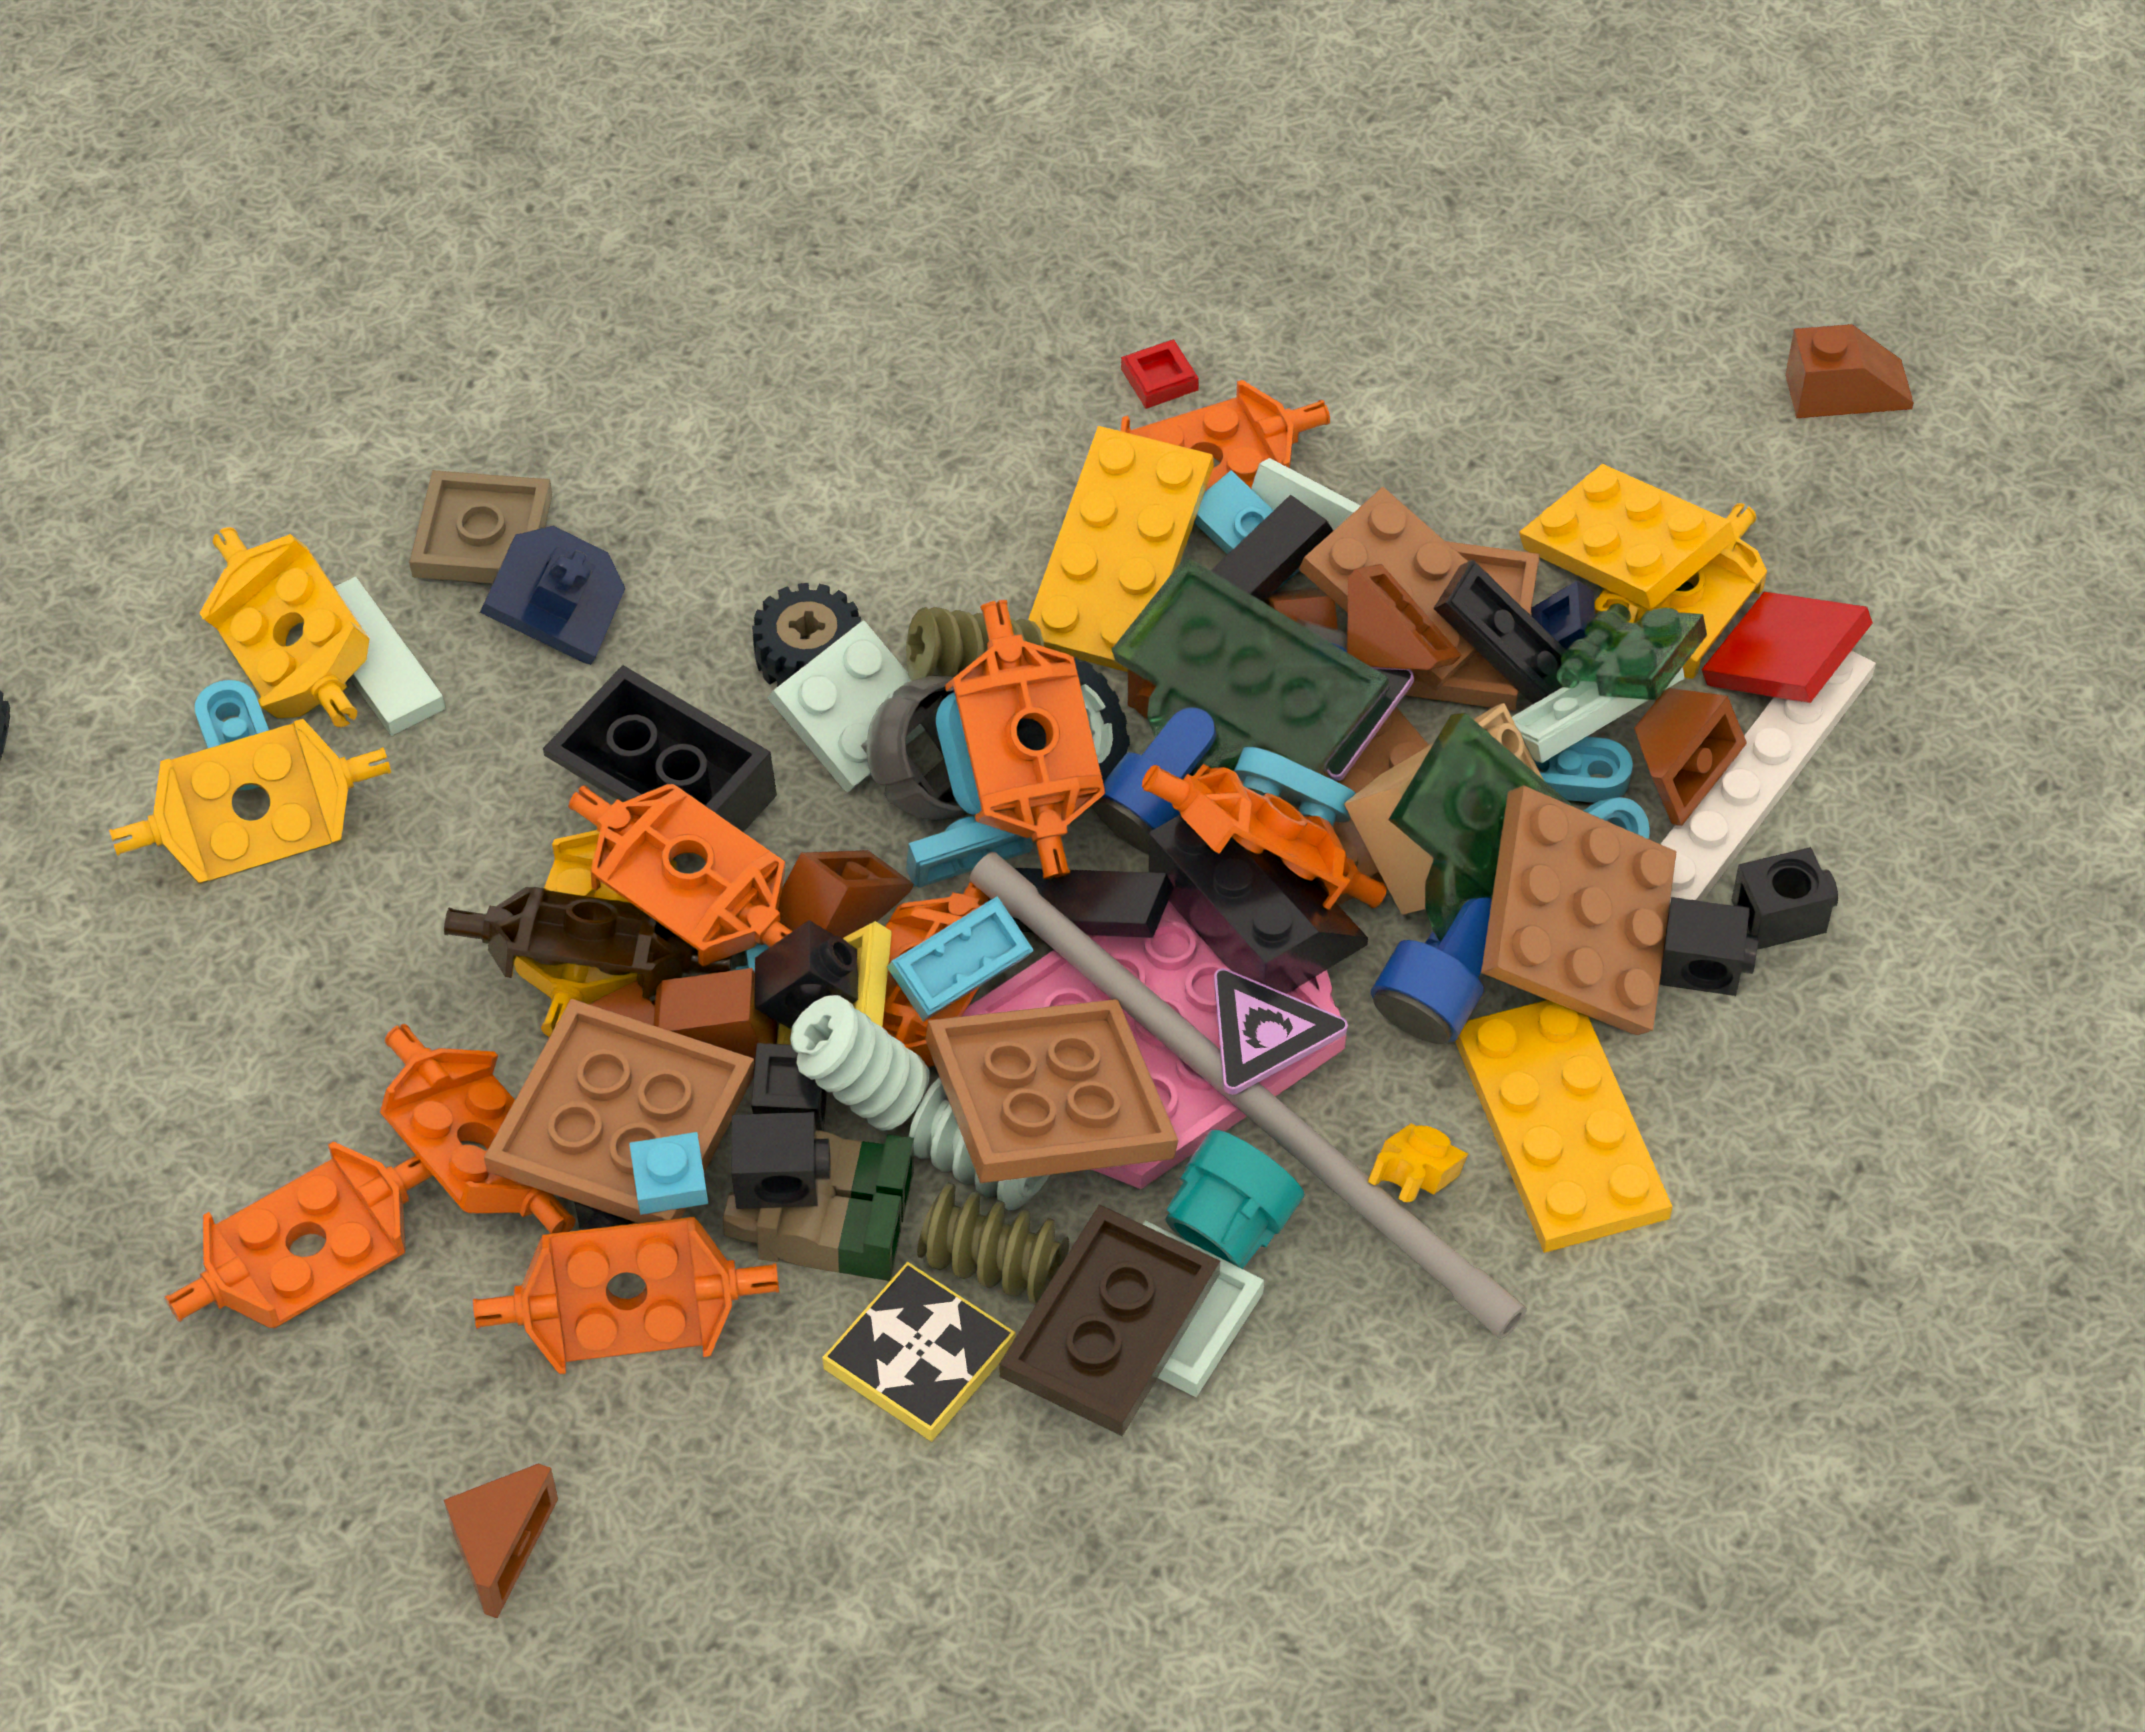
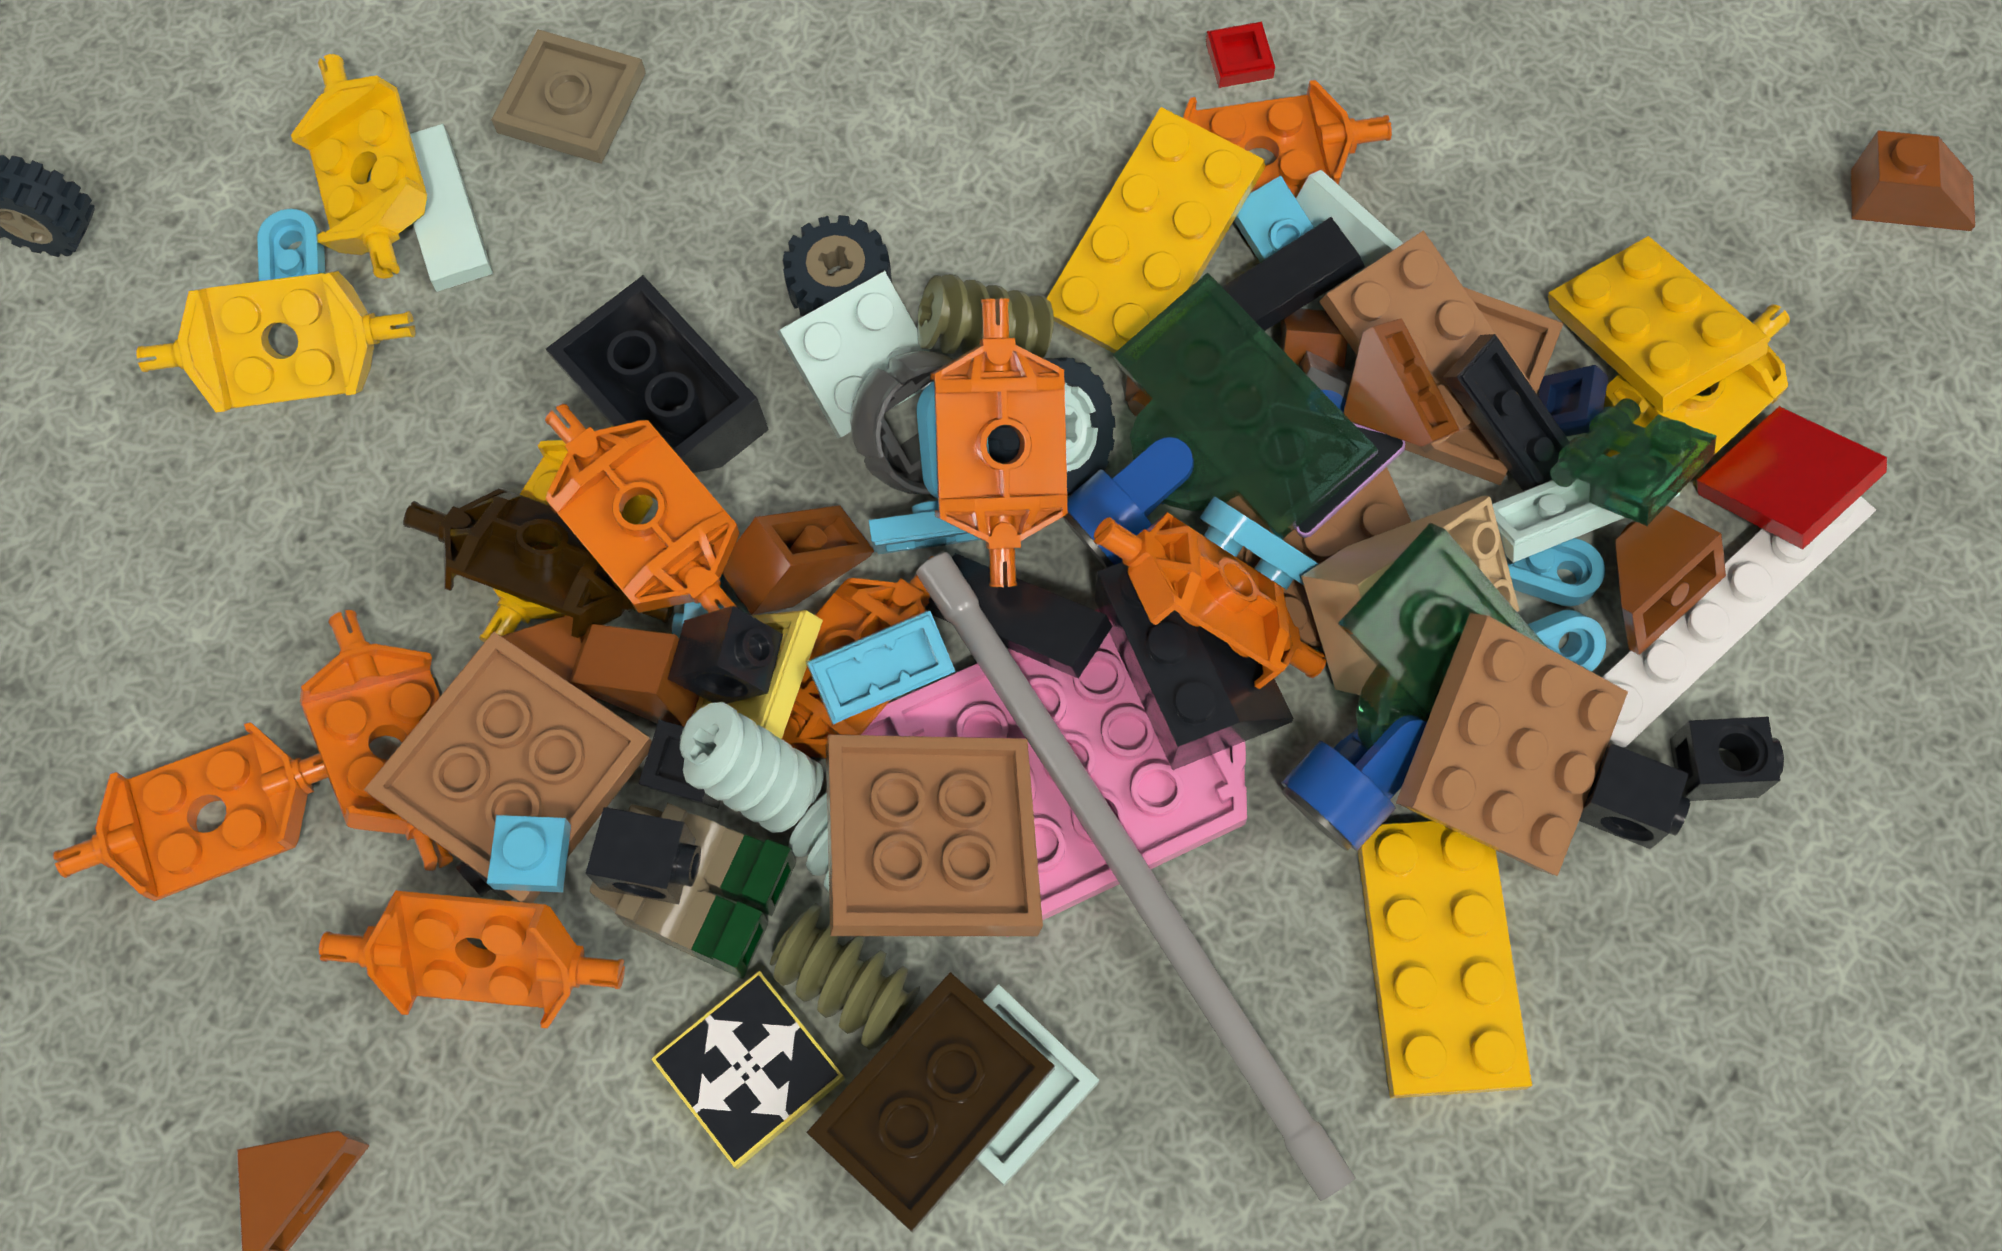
camera: 15 degrees right, 15 degrees up
(556, 591) = (616, 176): dark blue piece -> none
(1232, 1199) = (1085, 987): teal piece -> none
(1265, 1029) = (1164, 809): black piece -> none
(1417, 1160) = (1283, 980): yellow plate -> none

